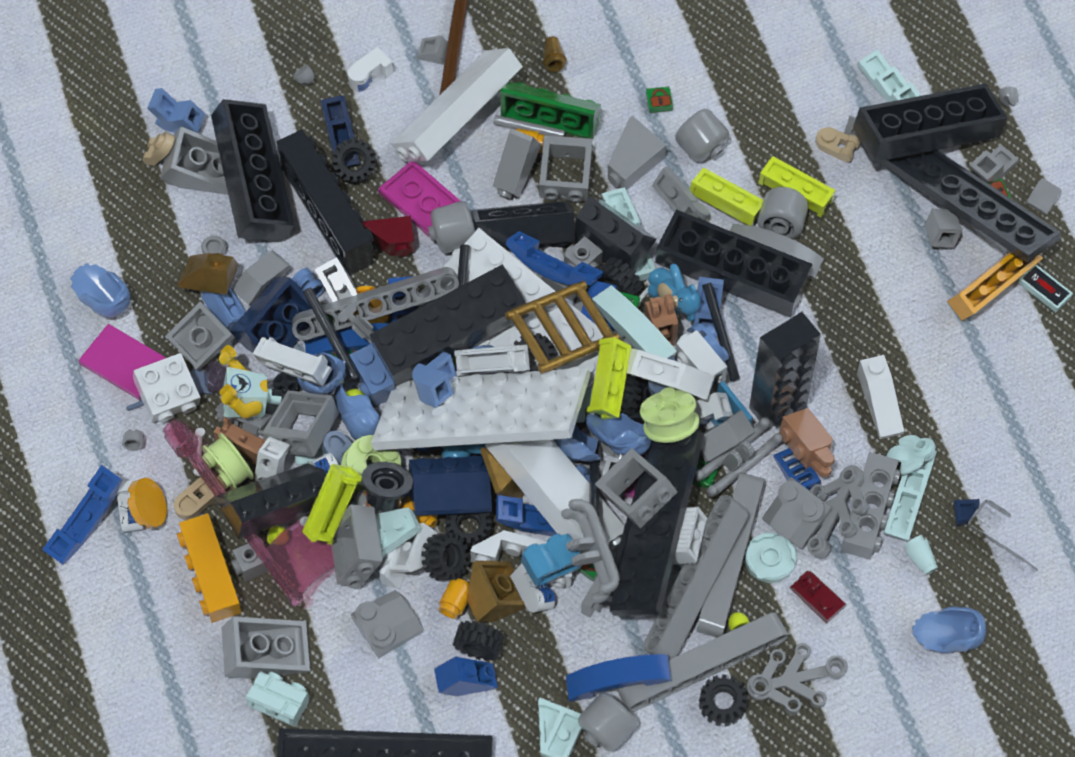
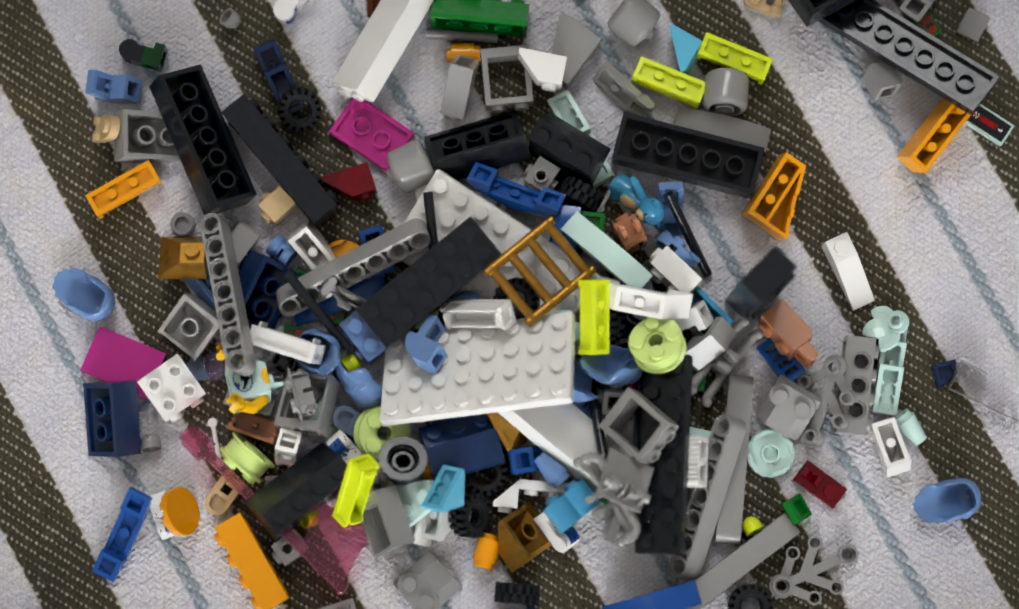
camera: 10 degrees left, 20 degrees up
(100, 406) = (112, 418): none -> dark blue slope
(163, 203) = (123, 188): none -> light orange container
(209, 91) = (143, 56): none -> leg
(244, 304) = (235, 301): none -> light grey beam
(296, 404) = (302, 402): none -> light grey hinge
(311, 244) = (276, 206): none -> tan brick
(426, 516) = (446, 491): none -> medium azure slope
(538, 523) = (551, 469): none -> medium blue cone
(604, 156) = (544, 68): none -> white slope
(611, 531) = (625, 481): none -> light grey hinge
(749, 167) = (686, 48): none -> medium azure slope
(789, 613) = (796, 509): none -> green tile
(824, 306) = (776, 197): none -> light orange wedge
(898, 568) = (891, 447): none -> white slope

